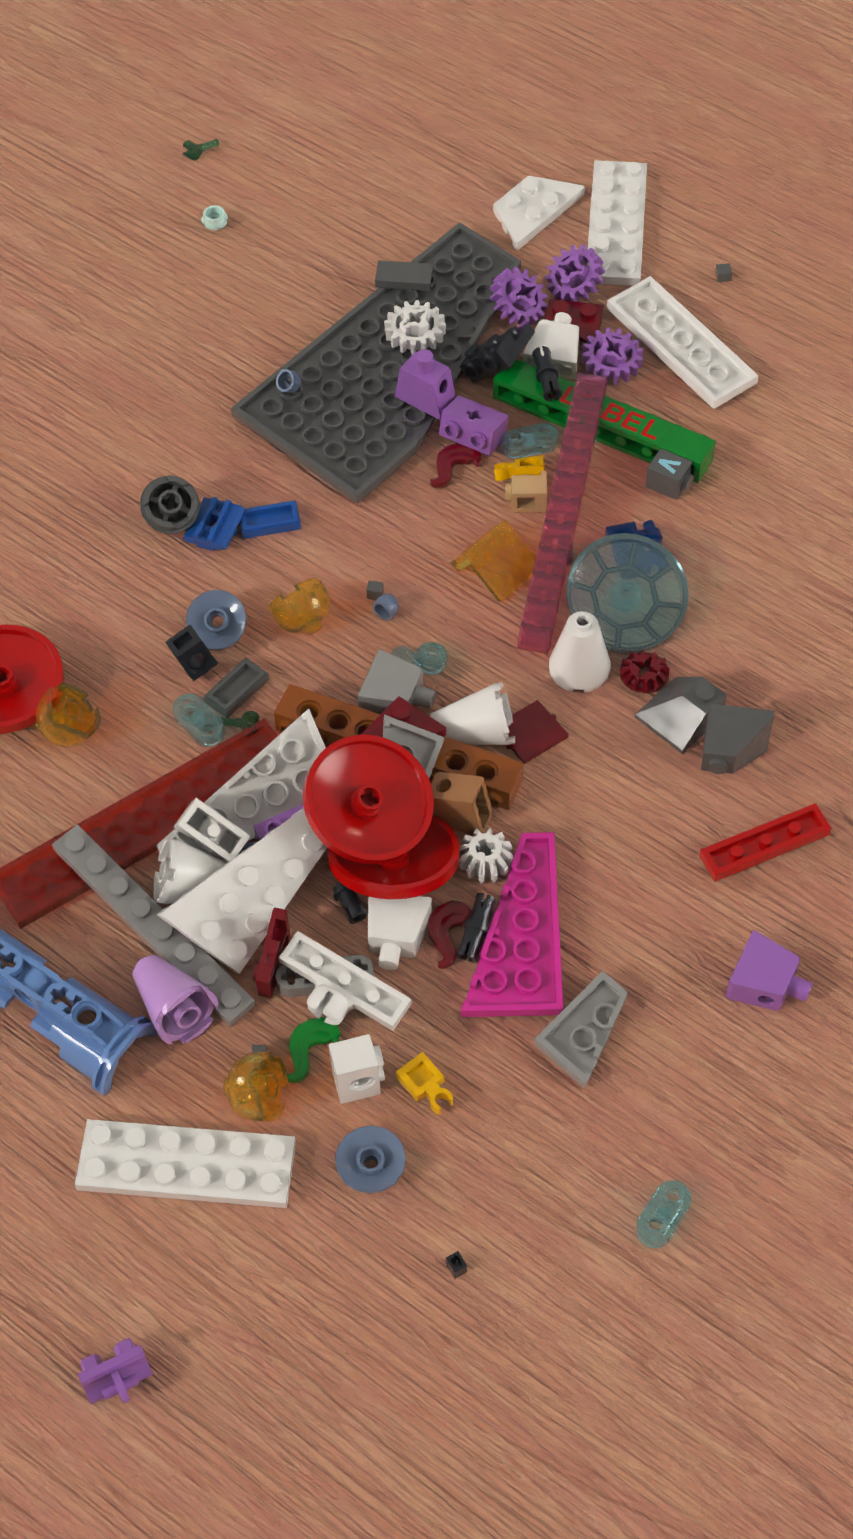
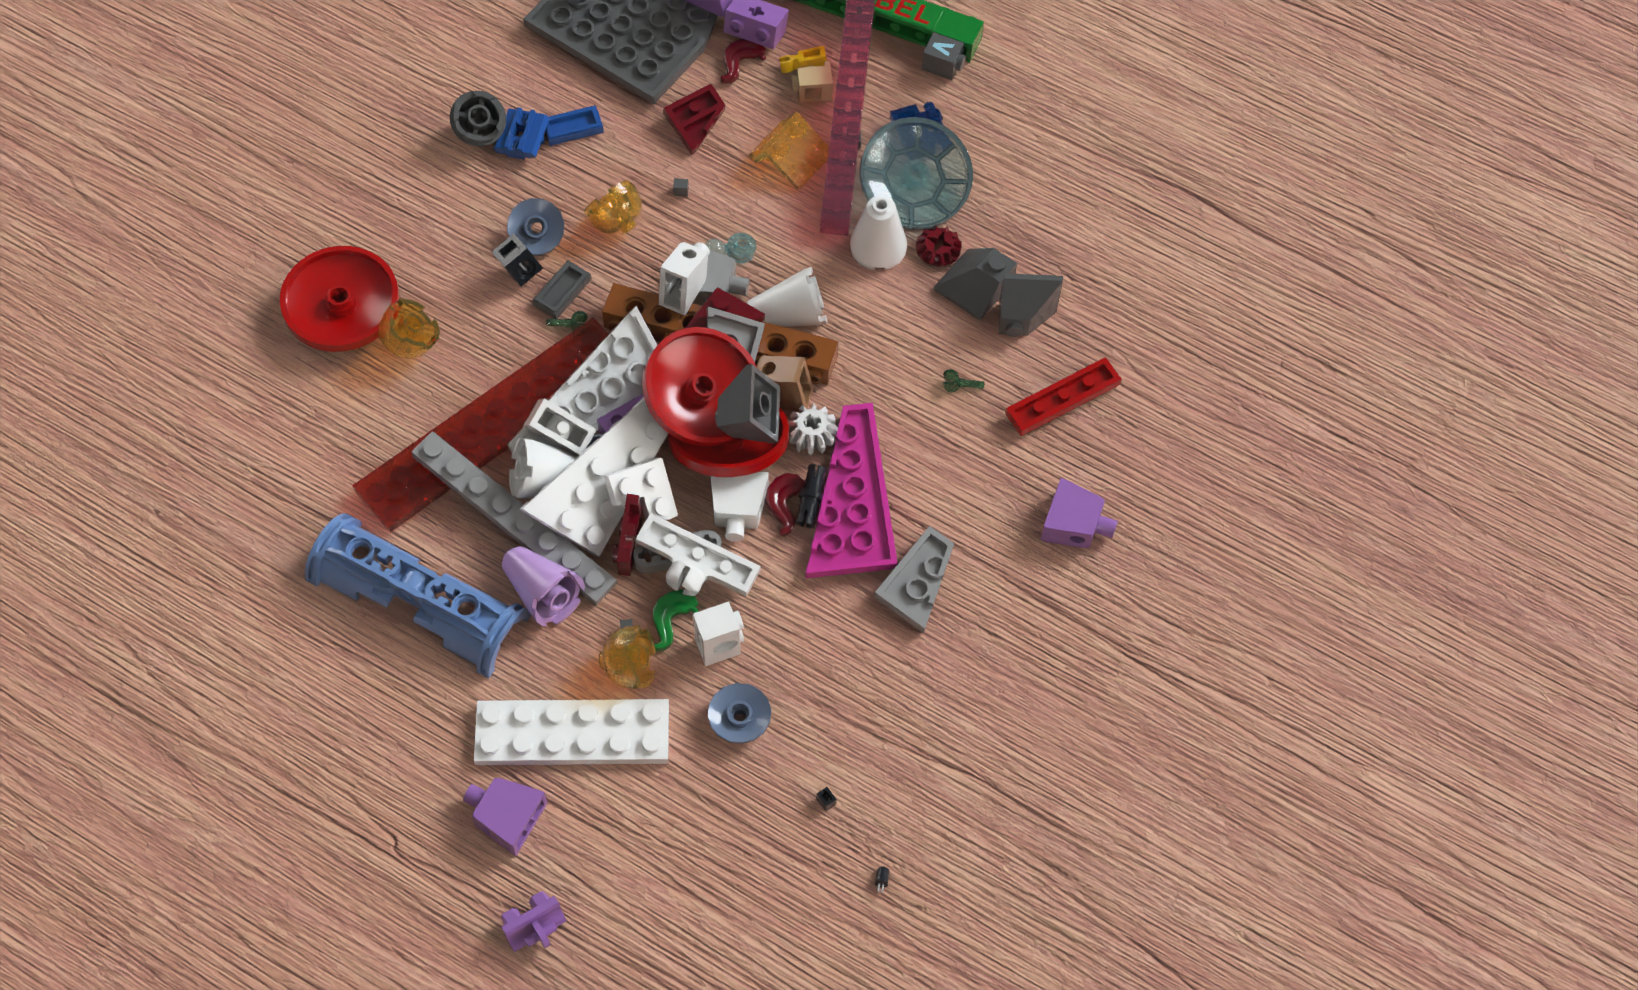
camera: 10 degrees left, 5 degrees up
(102, 1244) = (506, 811): none -> medium lavender torso
(201, 721) = (533, 324): clear light blue plate -> none
(301, 899) = (648, 481): none -> white plate
(350, 903) = (693, 483): black pin -> none
(362, 681) = (686, 265): none -> white torso
(386, 606) = (693, 202): sand blue hinge -> none
(399, 518) = (695, 116): none -> dark red wing
(417, 825) = (750, 407): none -> dark grey slope
(424, 1079) = (779, 638): yellow plate -> none
(509, 1361) = (882, 878): none -> black piece
(531, 440) = (810, 31): clear light blue plate -> none
(534, 732) = (844, 310): dark red piece -> none
(646, 821) = (959, 382): none -> clear green hand
(665, 1212) = (1004, 735): clear light blue plate -> none

